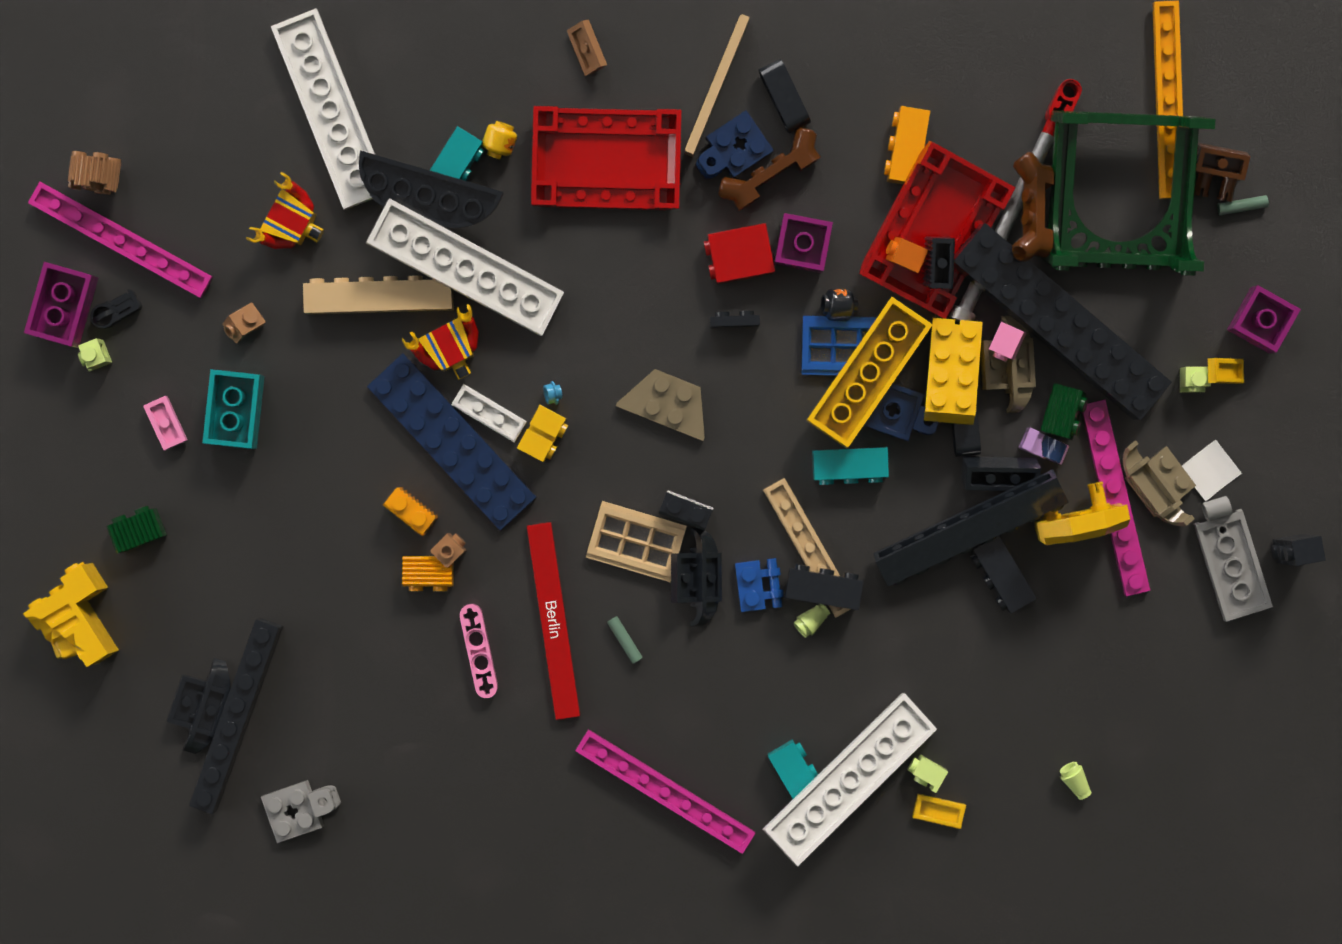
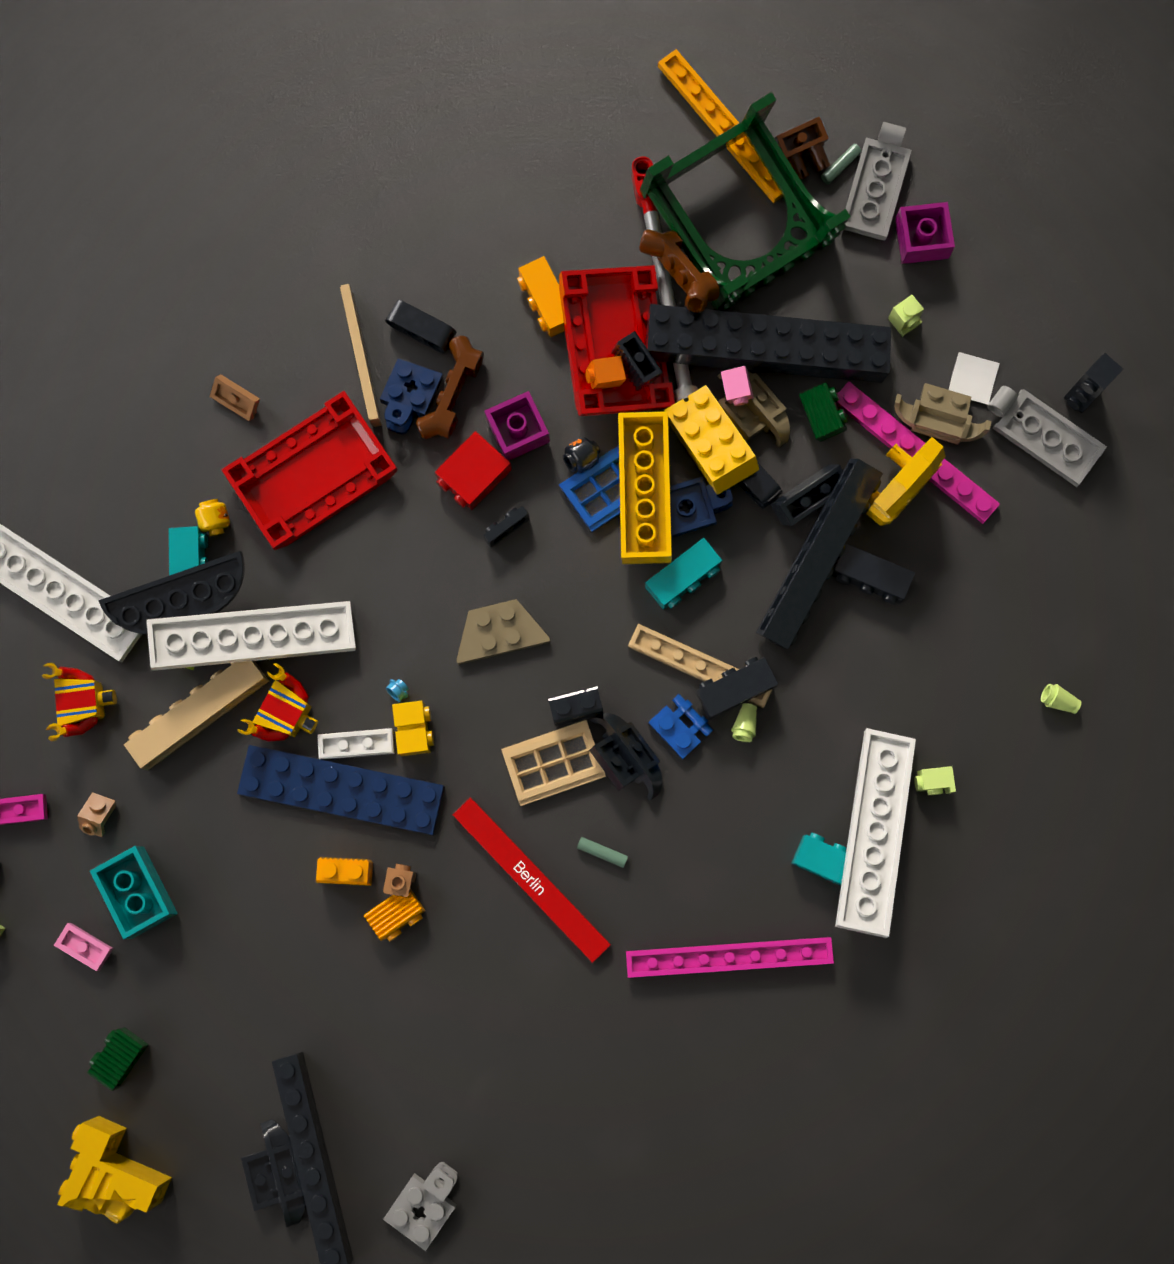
camera: 25 degrees left, 10 degrees down
(481, 650) = (487, 948): bright pink beam -> none
(939, 811) = (968, 807): yellow tile -> none
(1043, 446) = (827, 451): leg -> none
(1225, 370) = (926, 291): yellow tile -> none
(1259, 245) = (878, 183): none -> light grey hinge

